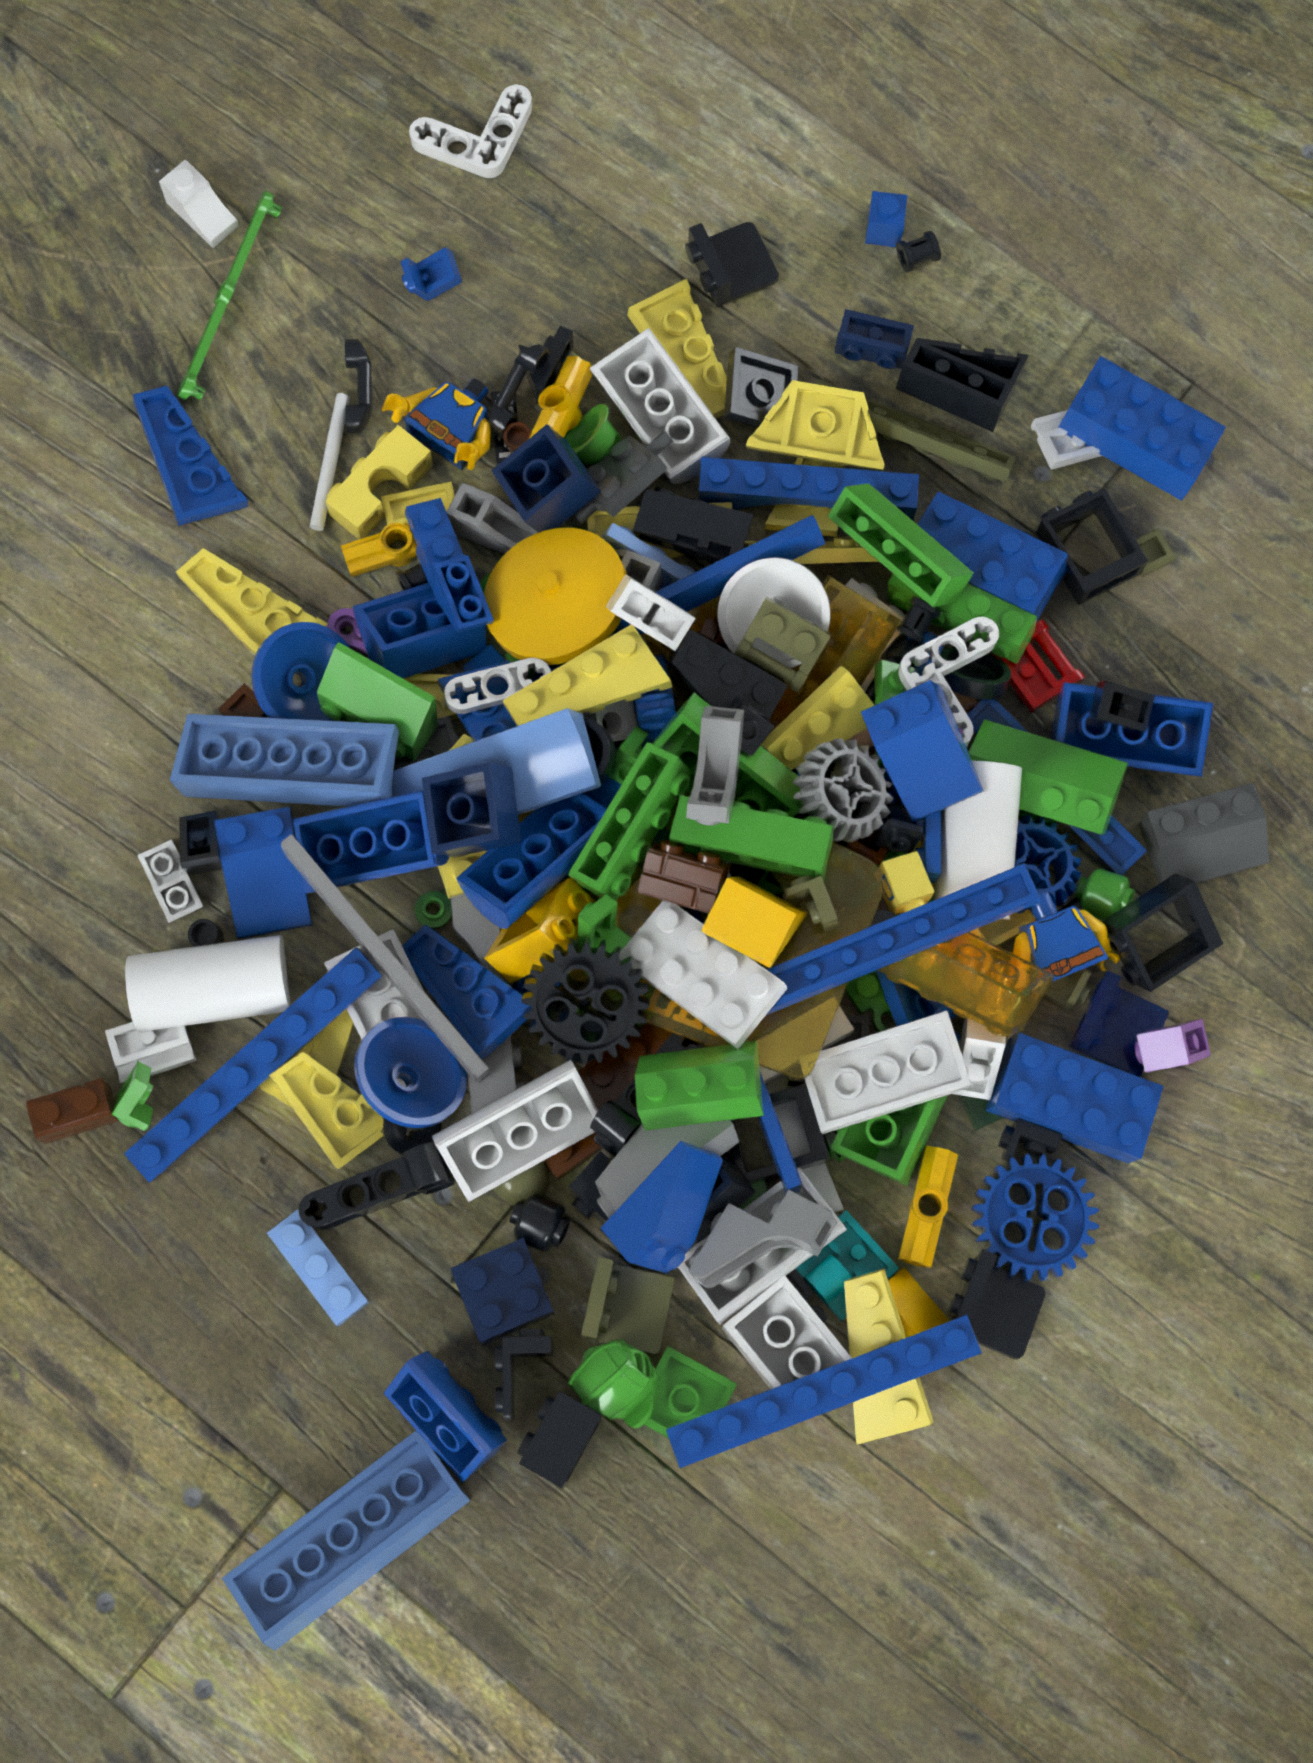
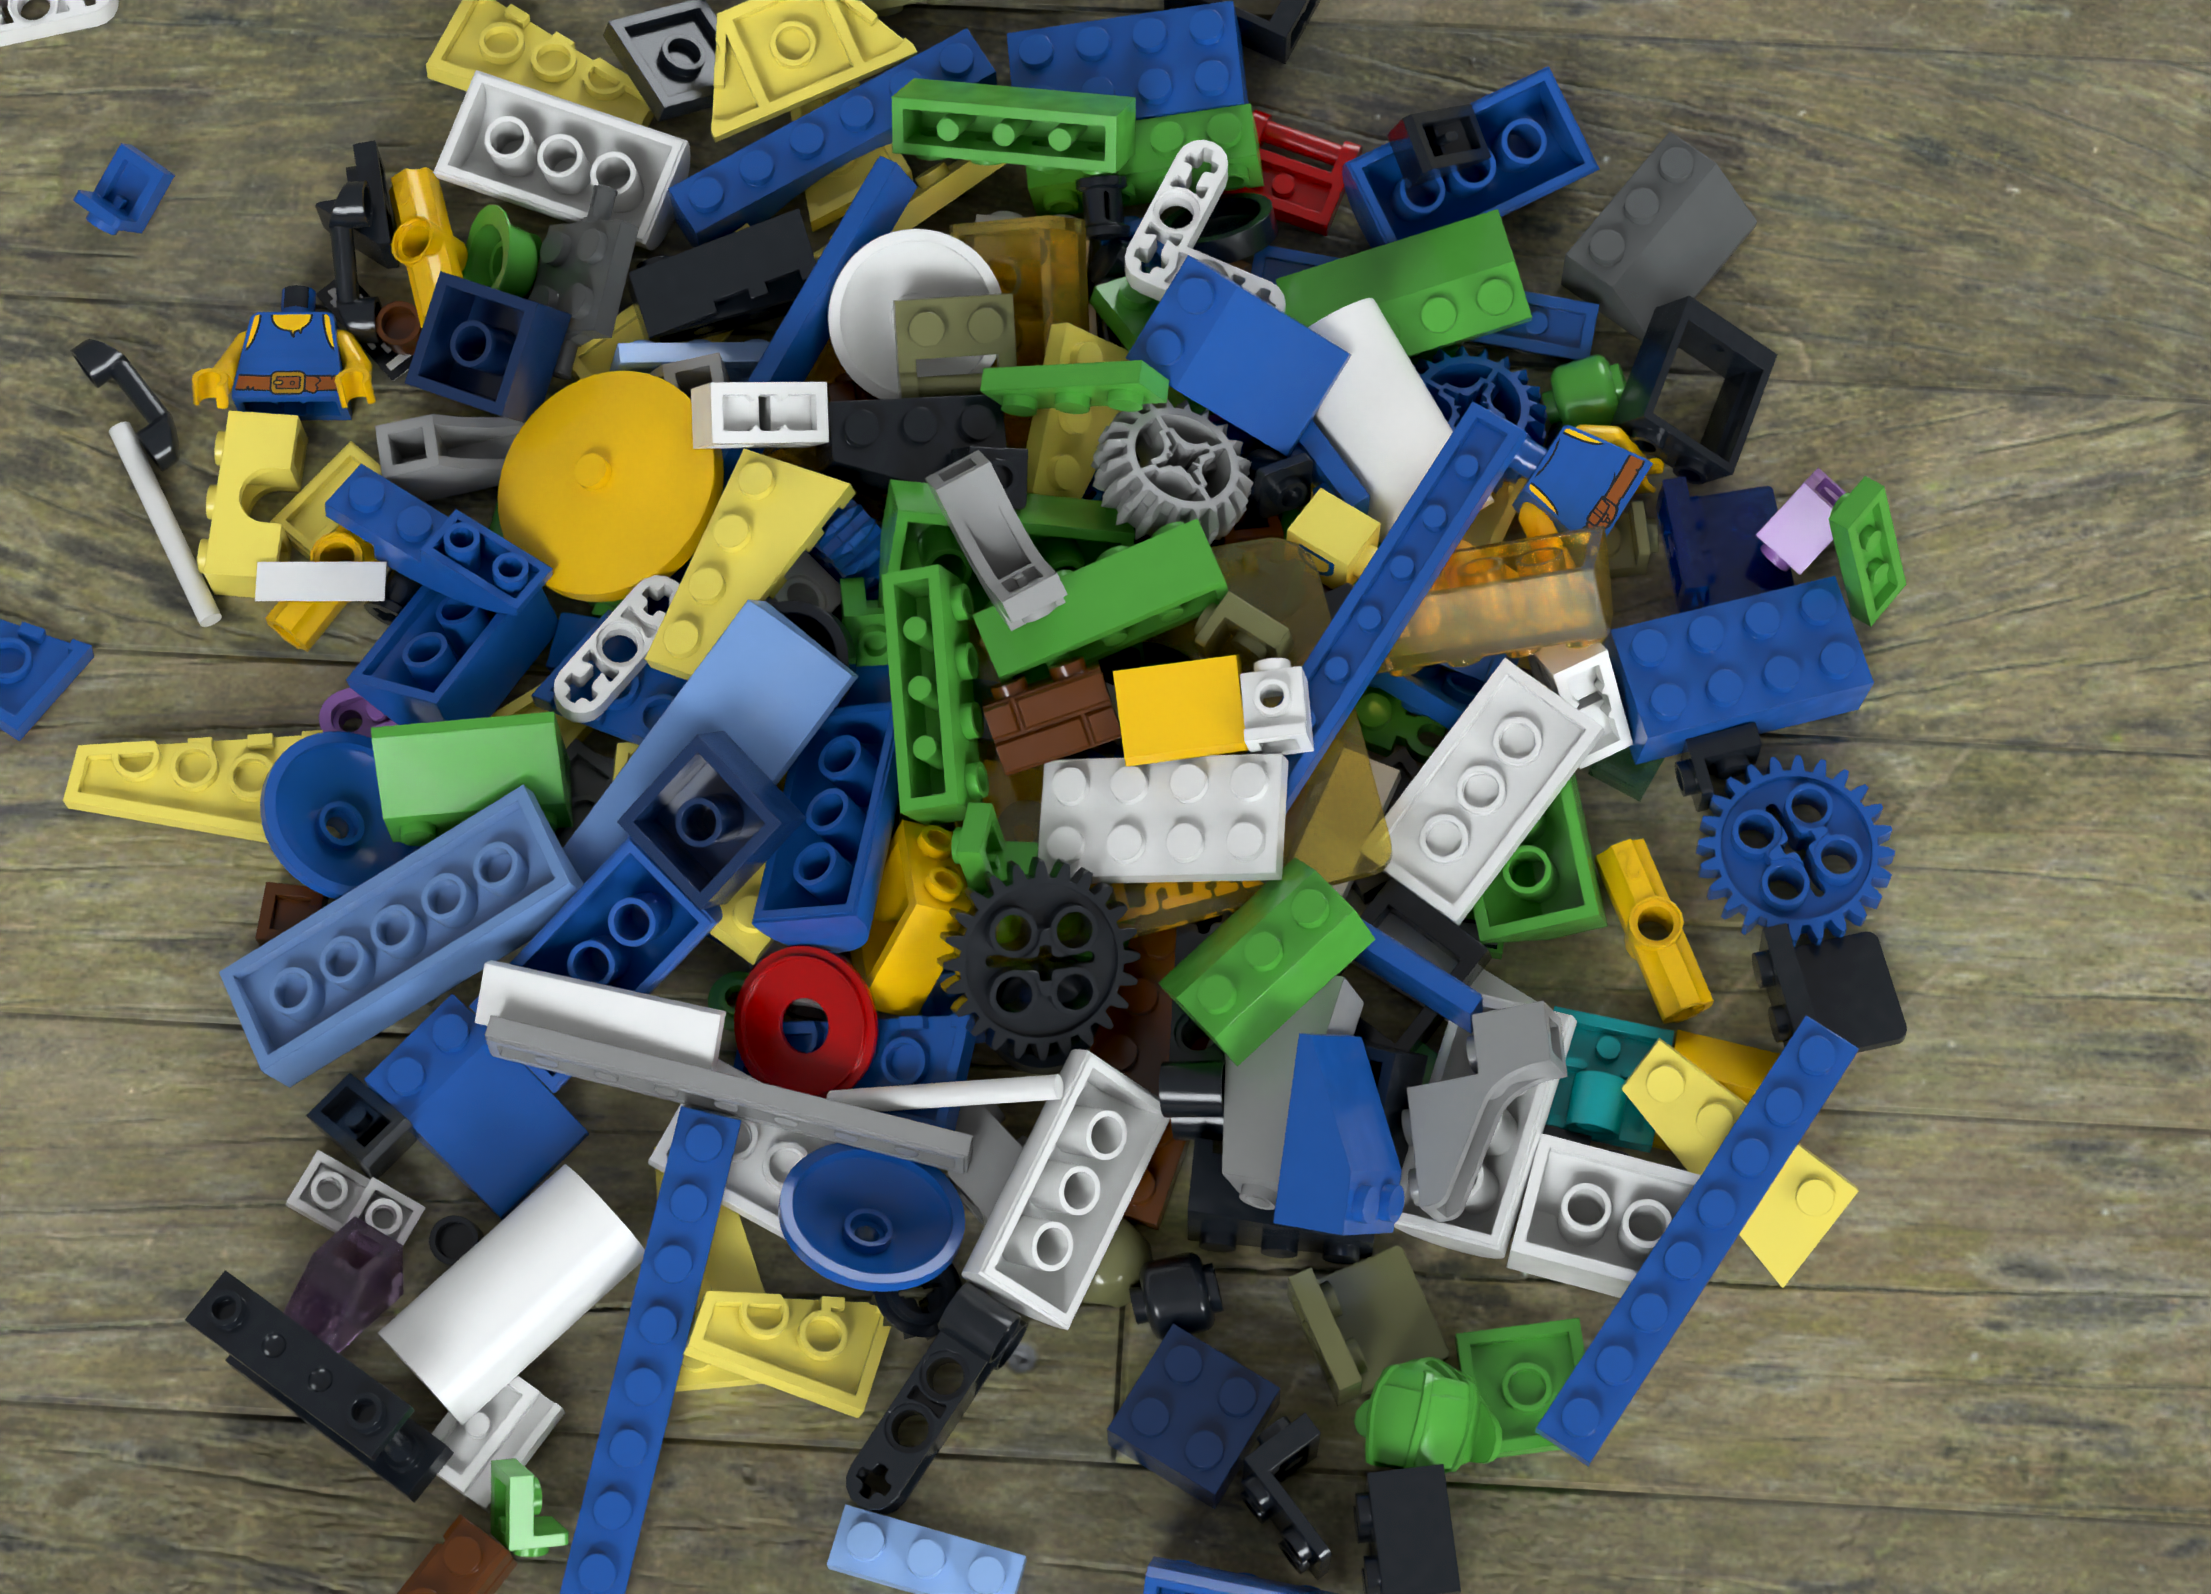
camera: 30 degrees left, 5 degrees down
(77, 964) = (320, 1386): none -> black fence
(127, 922) = (348, 1284): none -> clear purple slope
(349, 872) = (602, 1013): none -> white tile
(379, 545) = (320, 581): none -> white sticker
(477, 935) = (850, 1013): none -> red piece
(491, 1037) = (953, 1093): none -> white bar
(799, 970) = (1284, 727): none -> white brick
(823, 709) = (1074, 387): none -> bright green plate
(1189, 1084) = (1867, 550): none -> bright green plate

